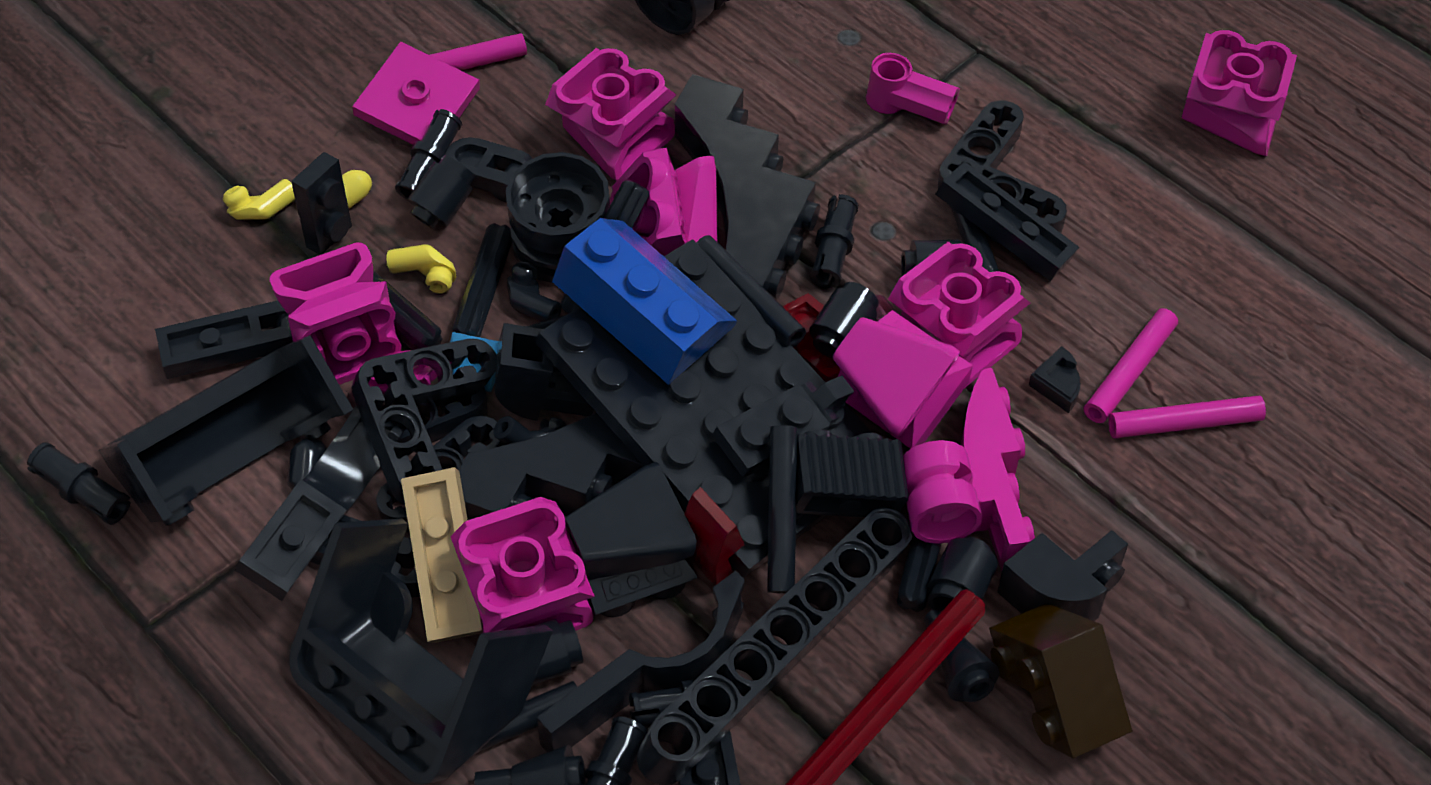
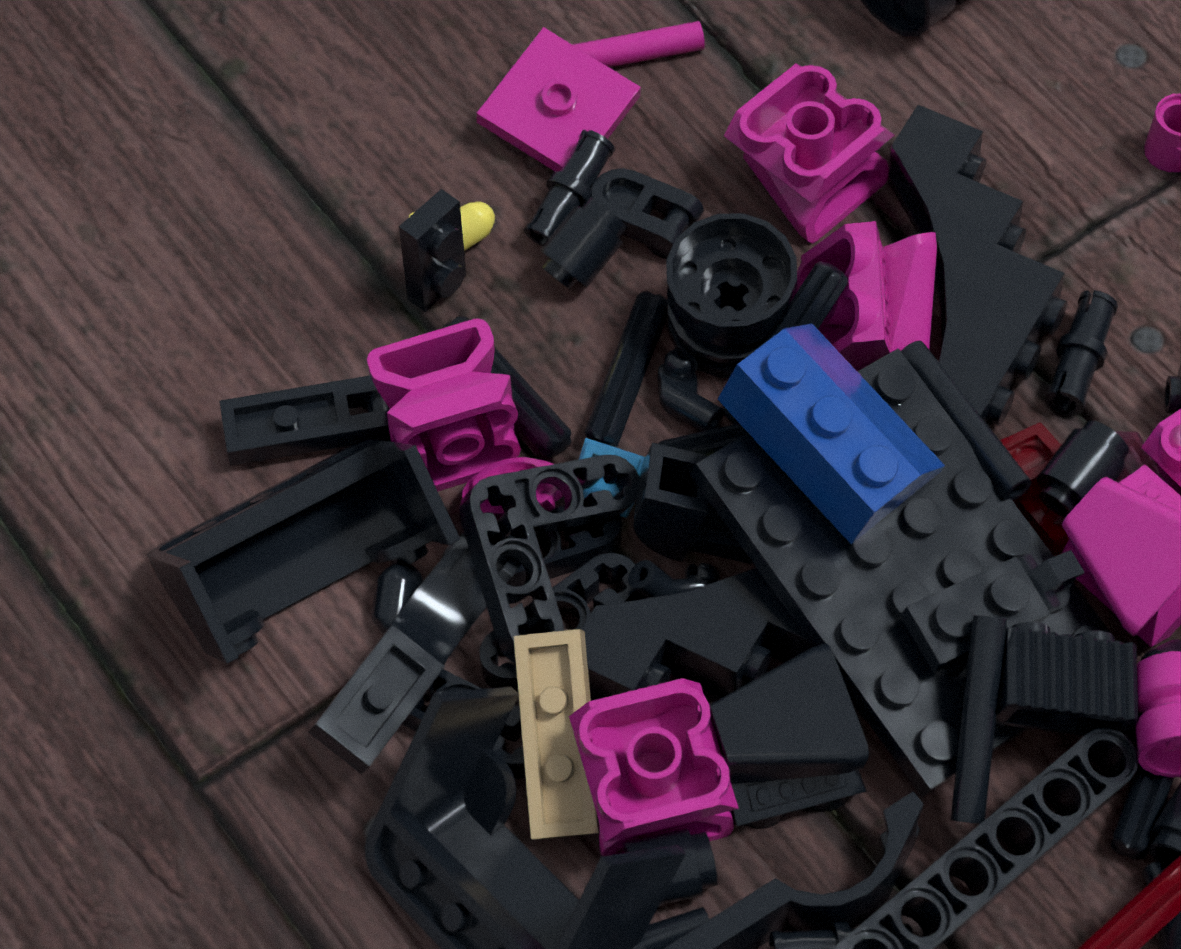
camera: 10 degrees right, 5 degrees up
(78, 483) = (121, 594): black pin -> none
(263, 206) = (352, 241): light yellow arm -> none
(437, 268) = (569, 344): light yellow arm -> none
(715, 536) = (891, 747): dark red slope -> none

